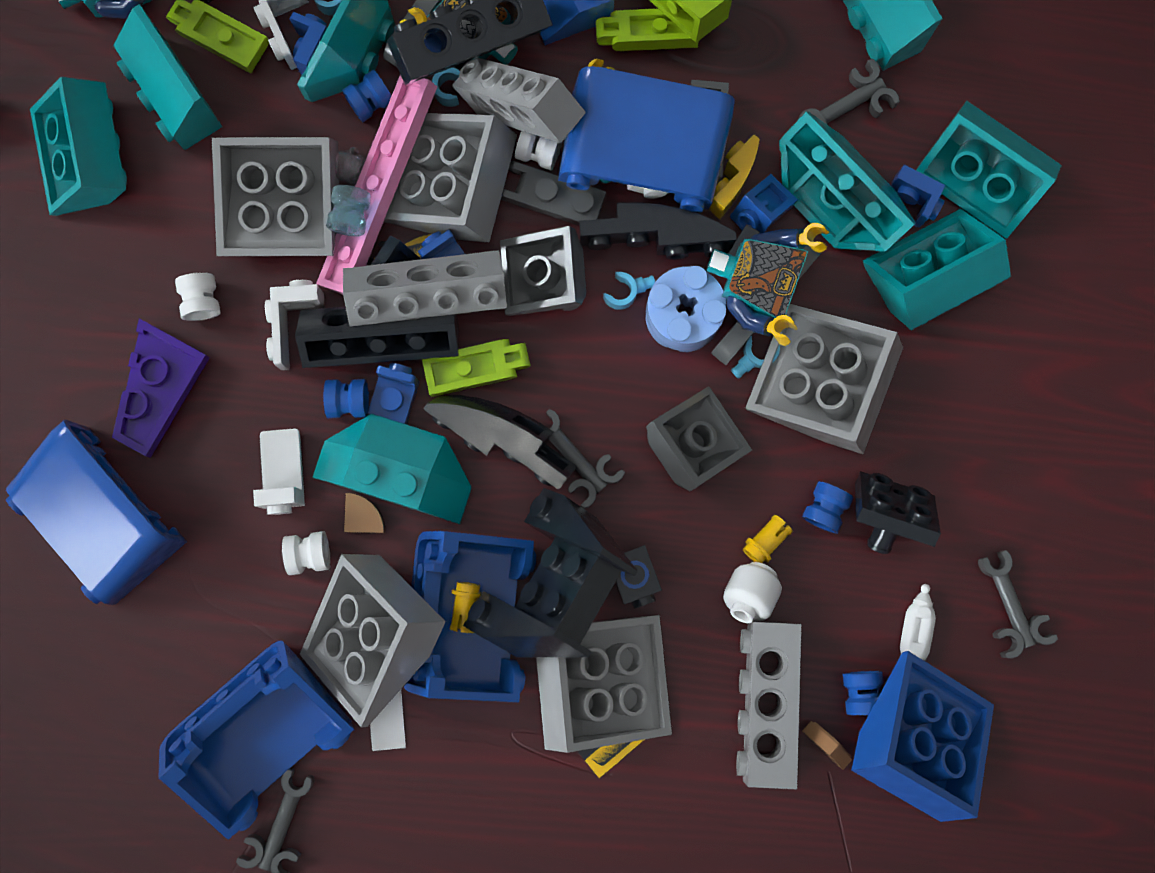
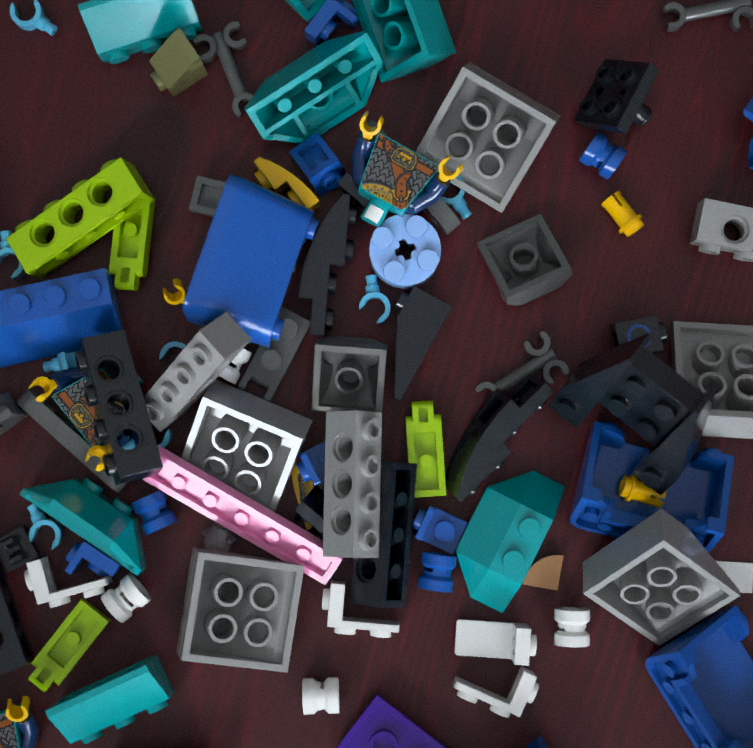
camera: 75 degrees left, 5 degrees up
(212, 488) = (522, 691): none -> white bracket
(271, 79) = (125, 598): none -> white wheel
(348, 209) = (268, 544): clear light blue wheel -> none
(600, 335) = (416, 328): none -> black slope
(752, 592) = (668, 235): white head -> none
(842, 43) = (176, 64): none -> olive slope
(919, 625) = (718, 95): white piece -> none

